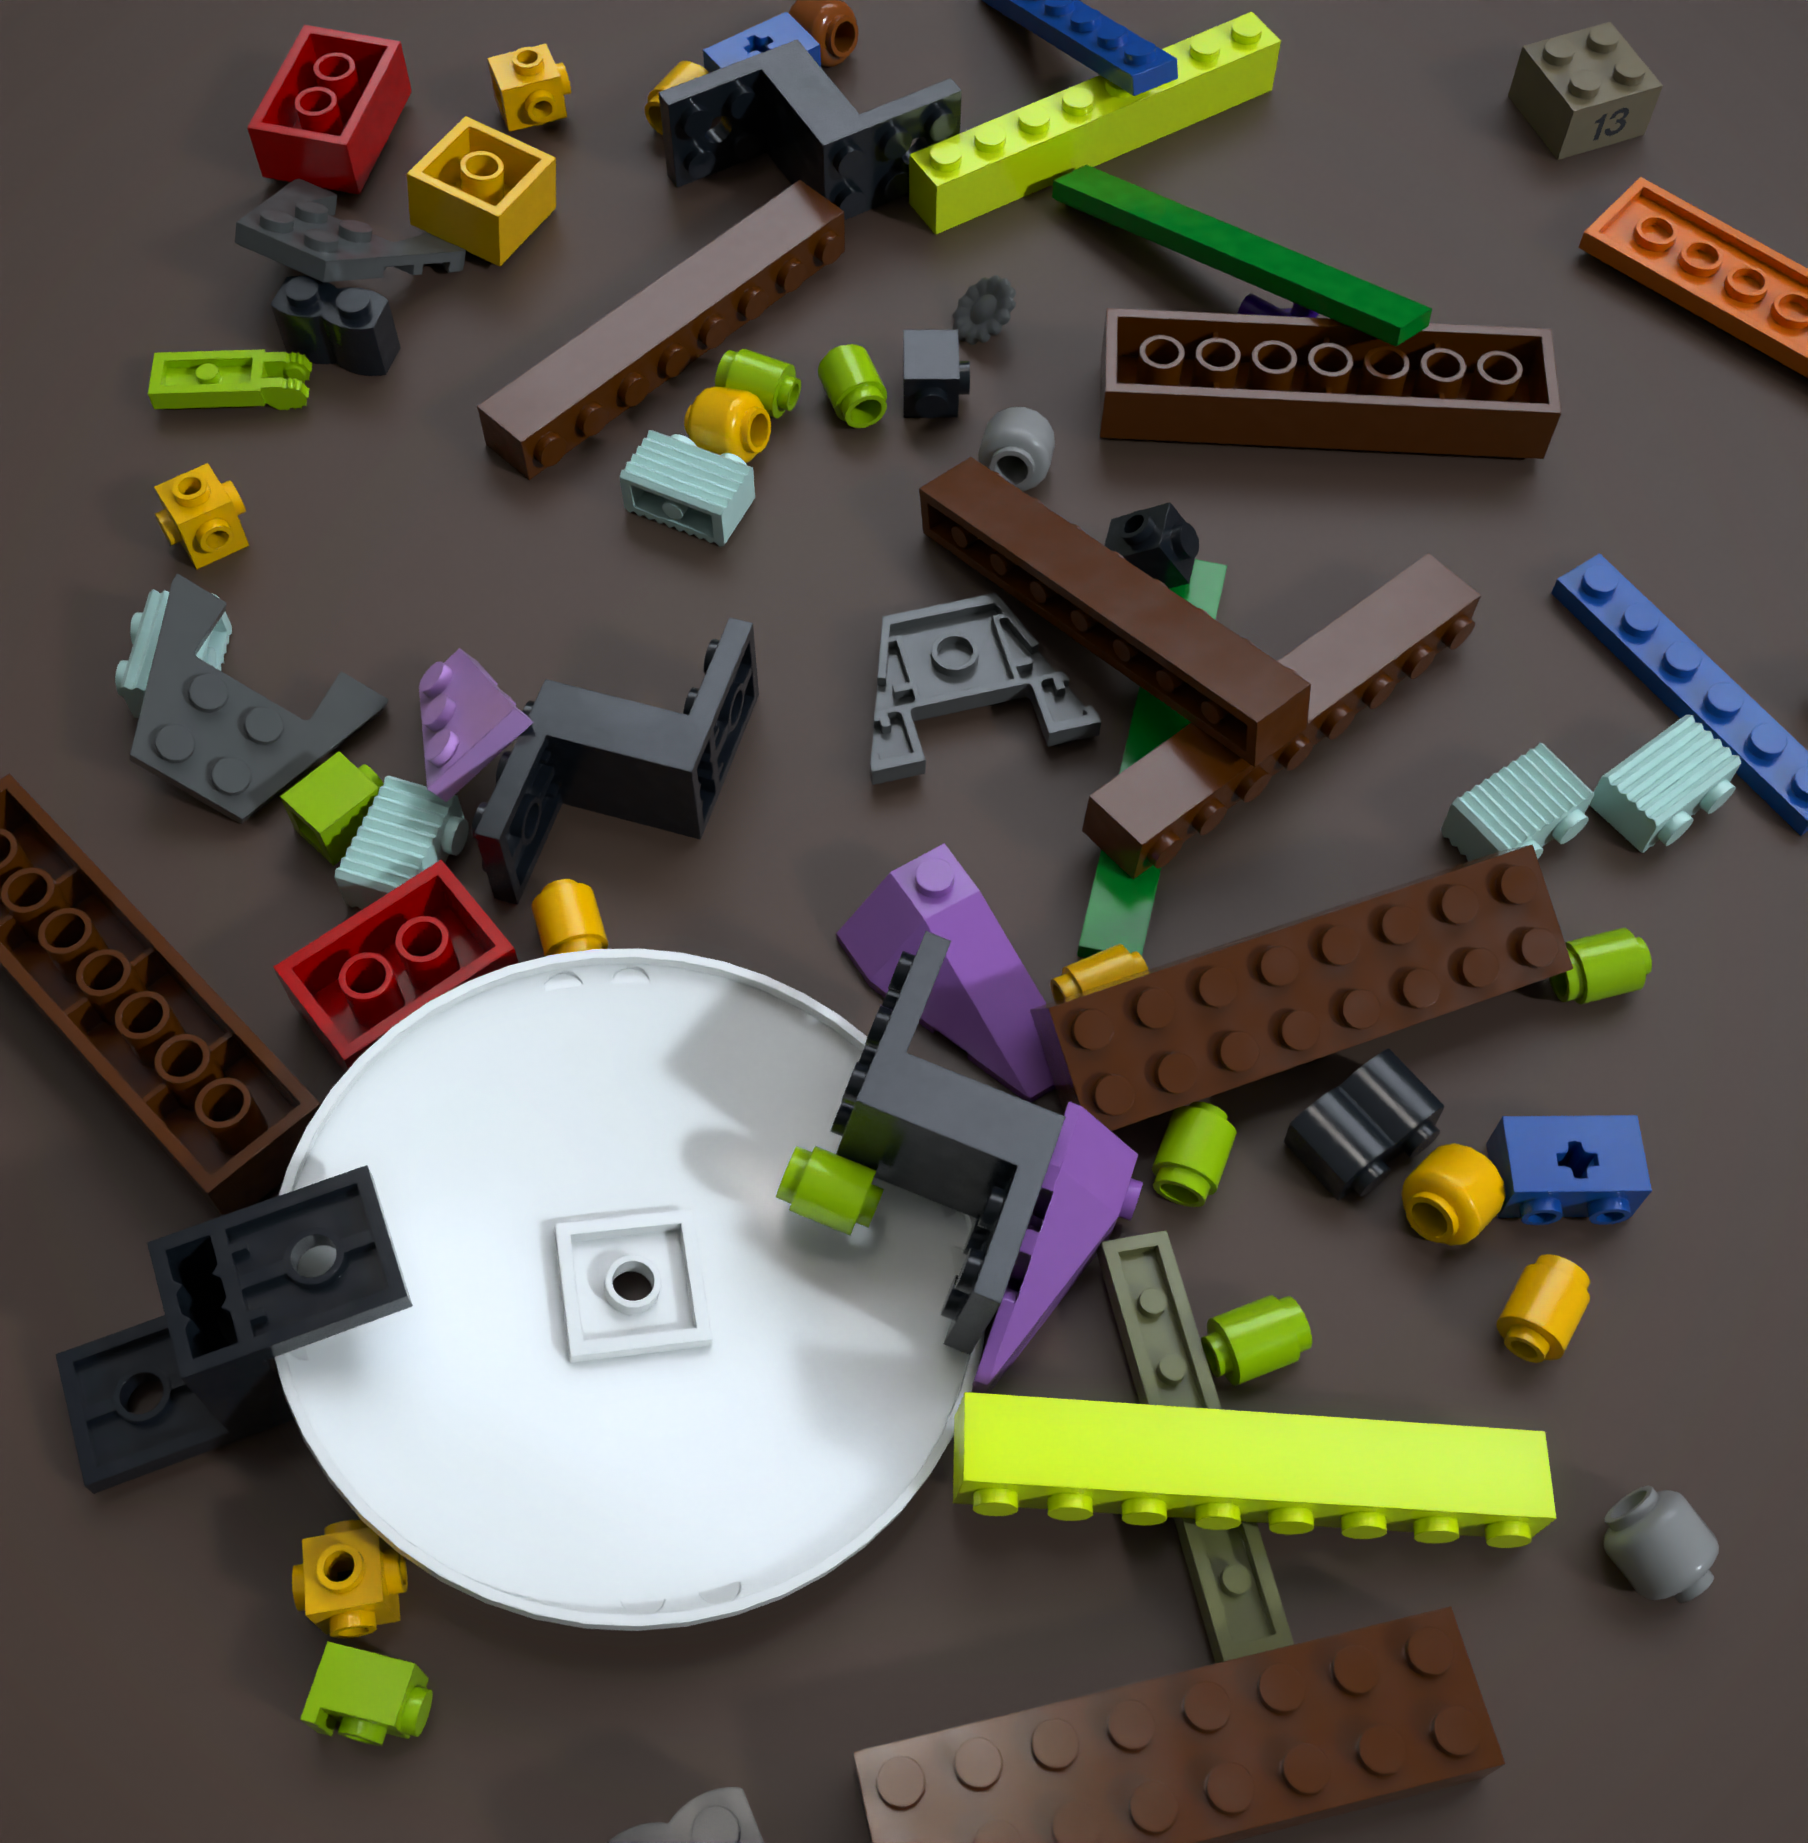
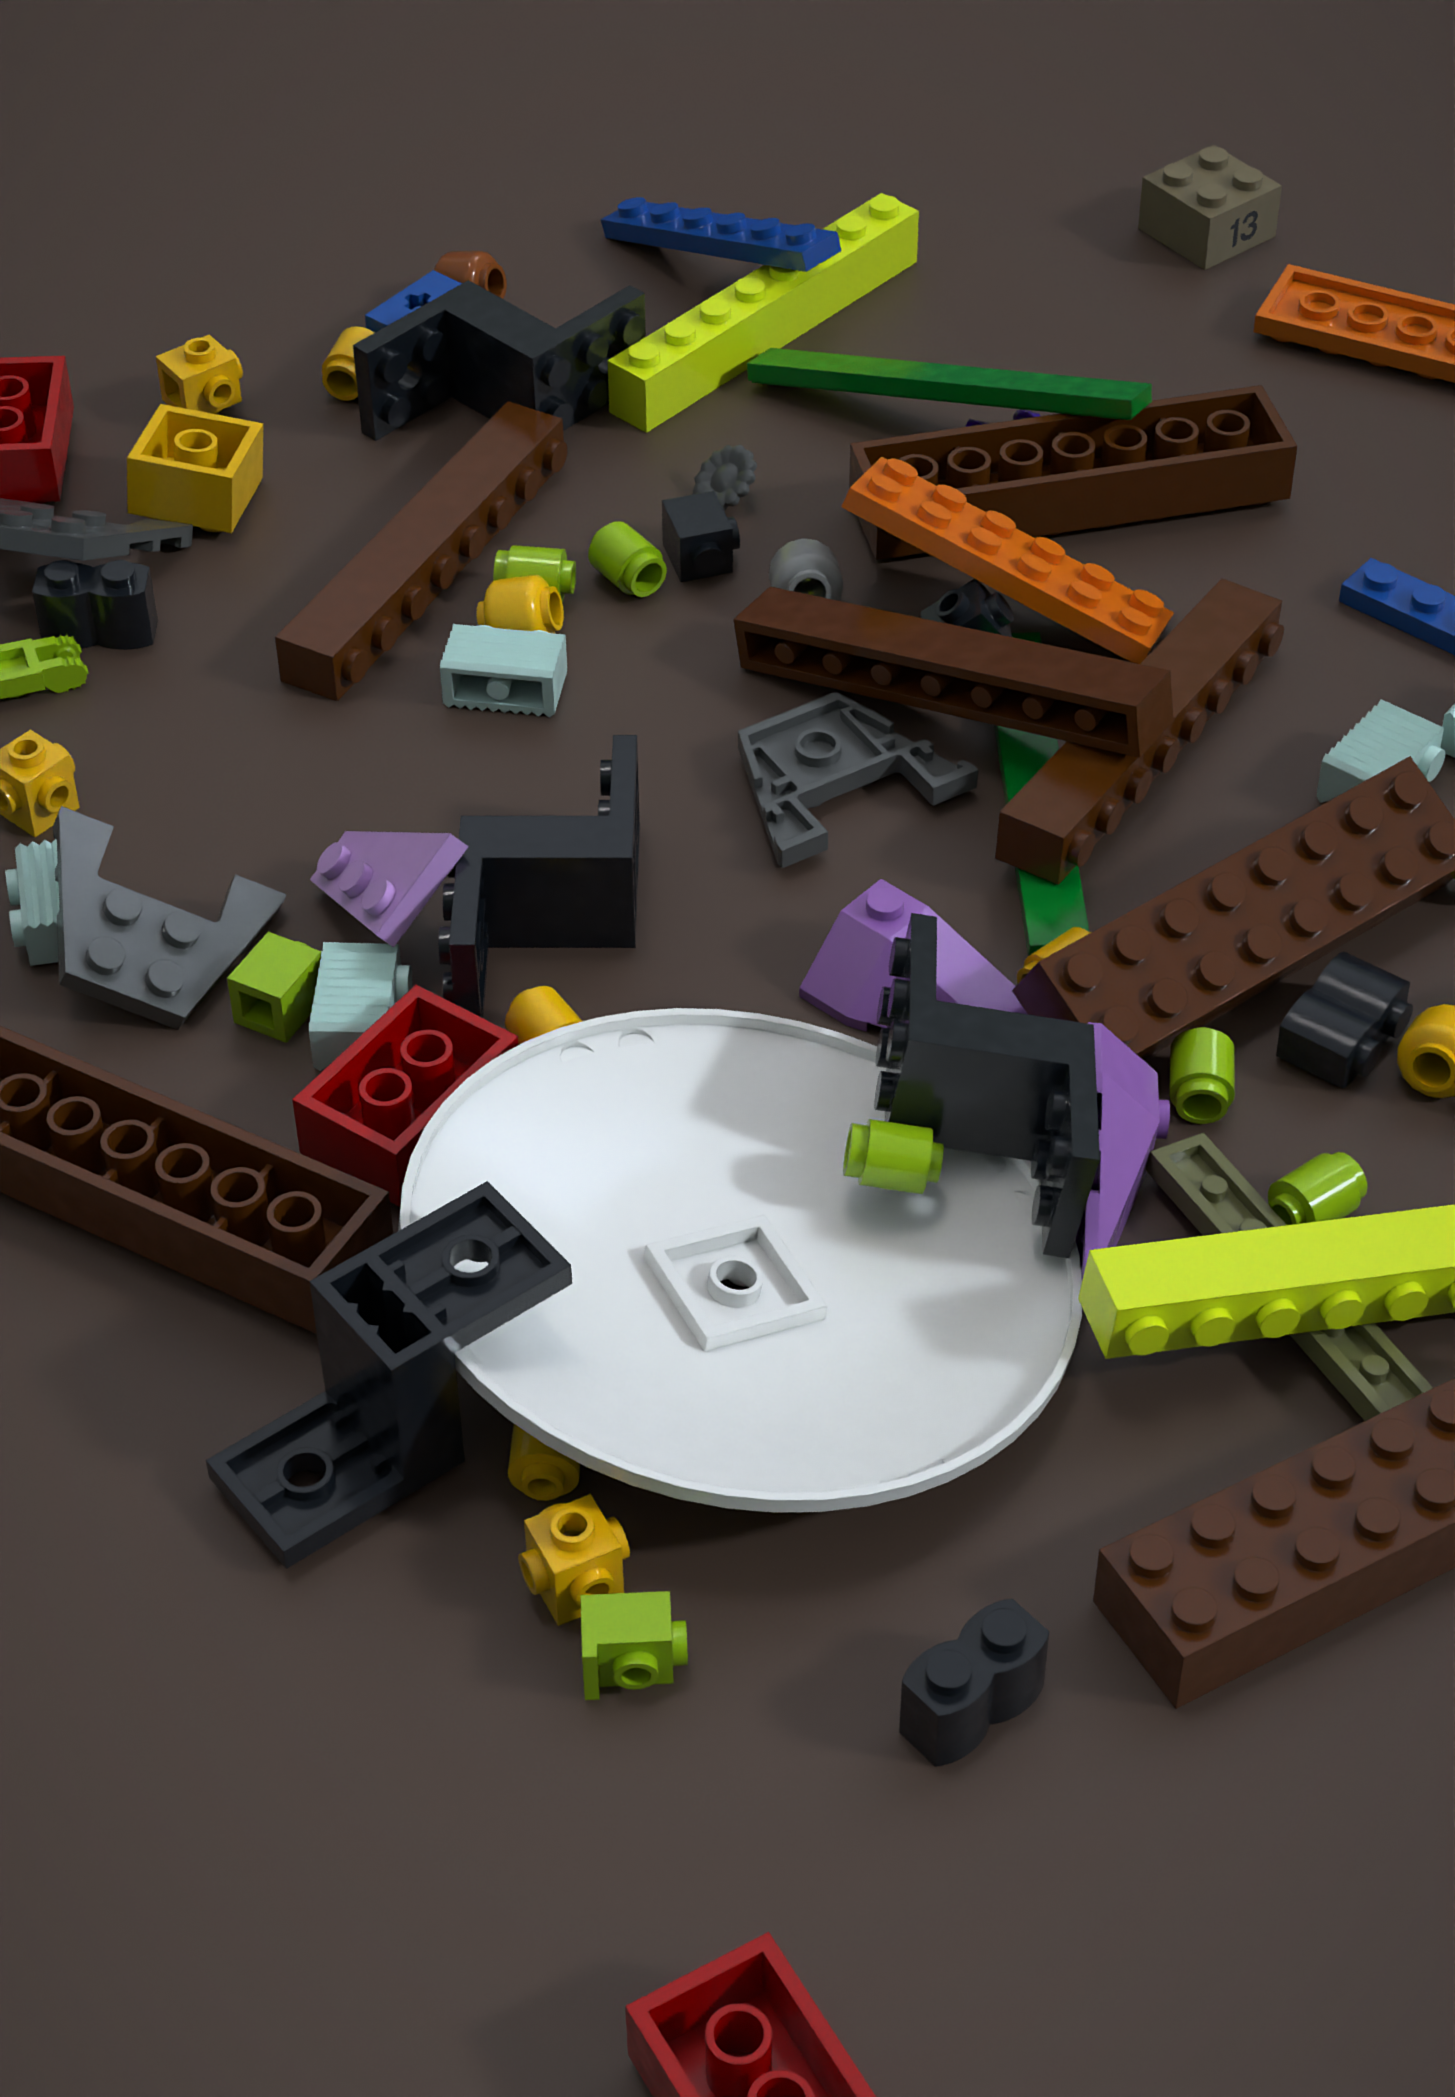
camera: 15 degrees left, 15 degrees down
(1213, 485) = (1009, 560): none -> orange plate

